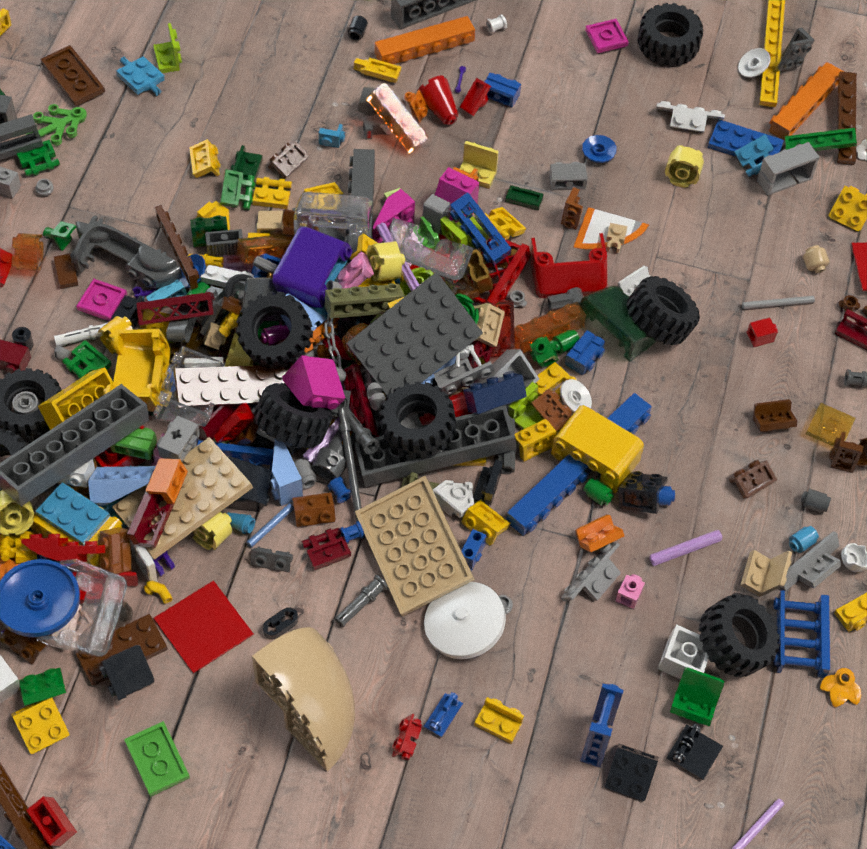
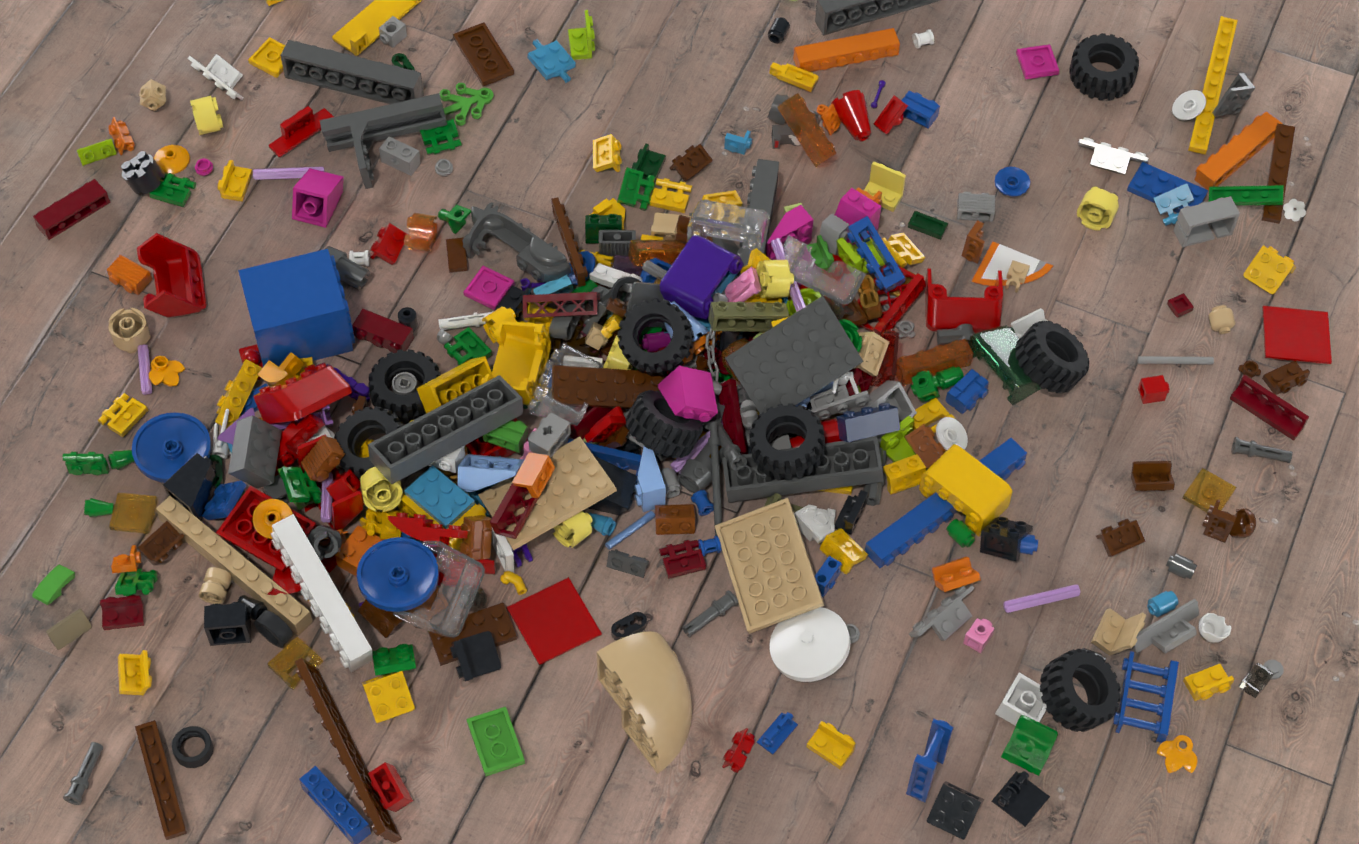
camera: 10 degrees right, 0 degrees up
(775, 250) = (1180, 305): none -> dark red plate

